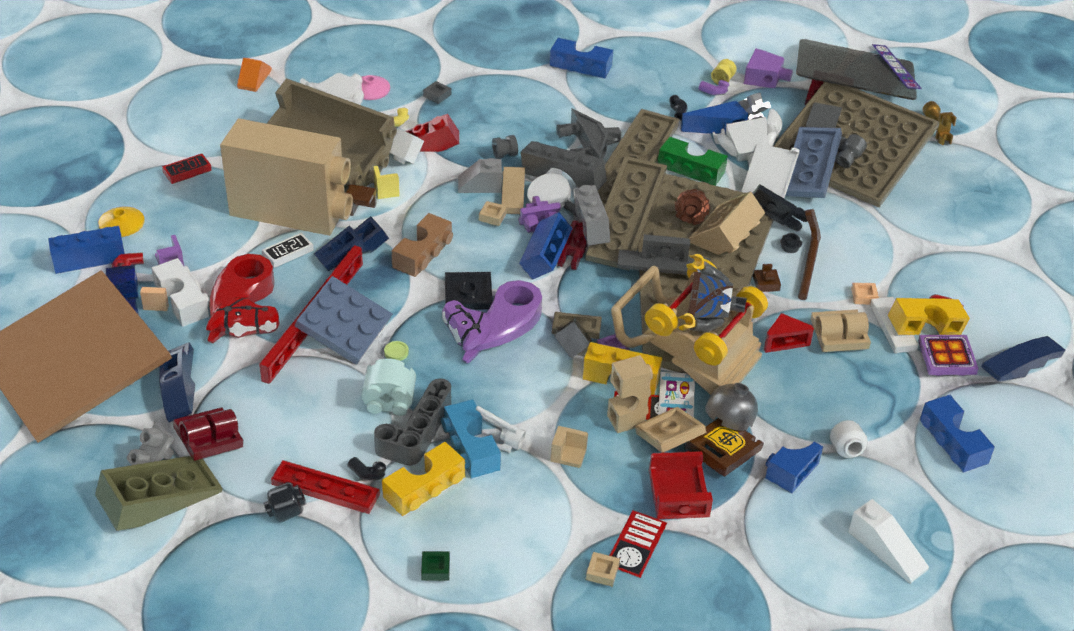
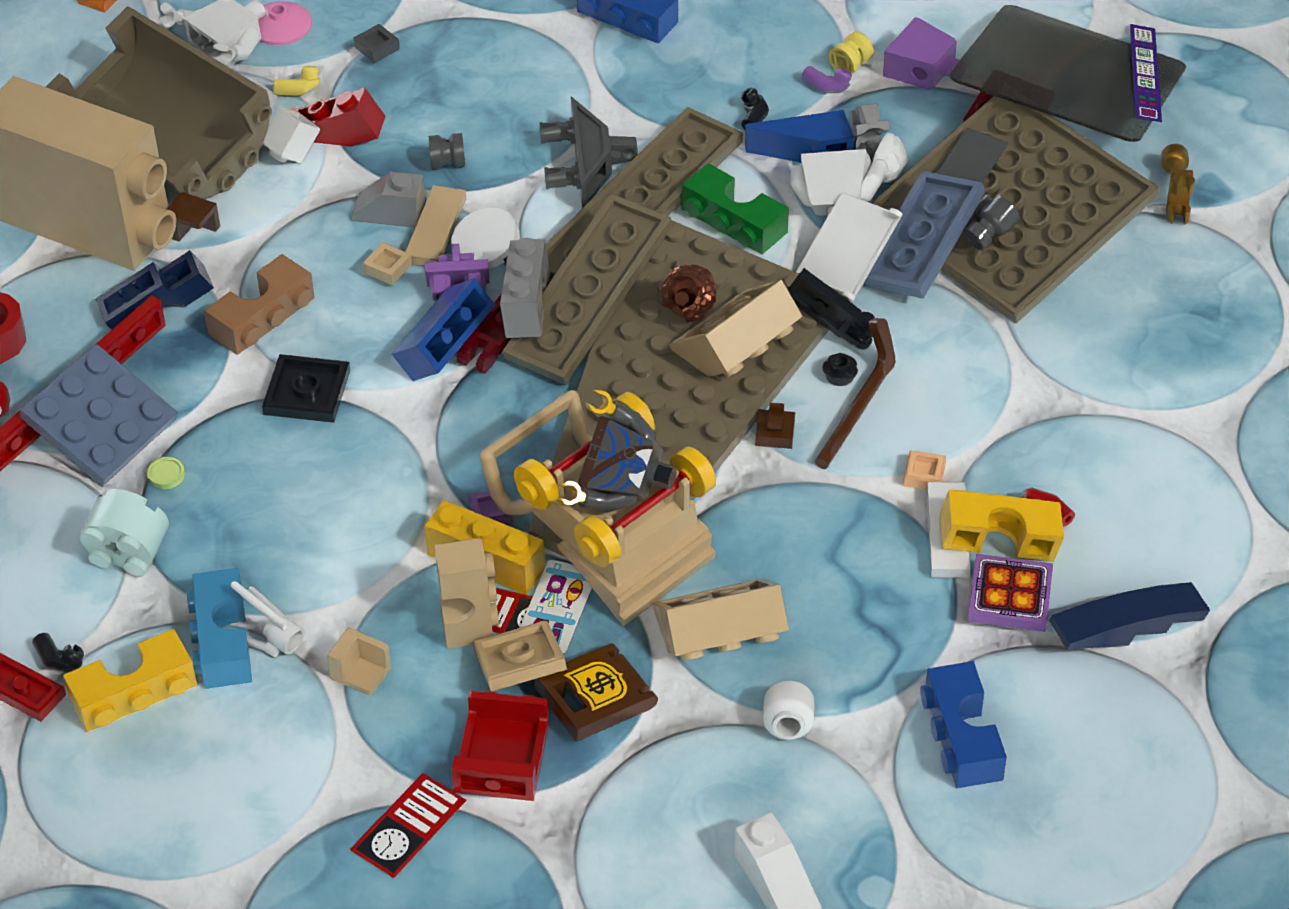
camera: 15 degrees right, 5 degrees up
(288, 250) = (61, 288): tile -> none
(386, 185) = (240, 198): light yellow panel -> none
(410, 443) = (152, 601): dark grey beam -> none
(435, 566) = (101, 815): dark green plate -> none
(501, 323) = (334, 449): medium lavender animal -> none
(573, 338) = (431, 486): black panel -> none
(582, 168) = (544, 207): dark grey arch -> none
(590, 324) = (447, 466): dark tan tile -> none
(602, 569) = (338, 857): tan plate -> none
(665, 252) = (614, 369): dark grey bracket -> none
(733, 405) = (626, 634): flat silver cylinder -> none
(788, 334) = (764, 524): red slope -> none
(789, 390) = (721, 618): none -> tan slope
(792, 466) = (684, 742): blue arch -> none
(841, 330) = (854, 529): tan plate -> none

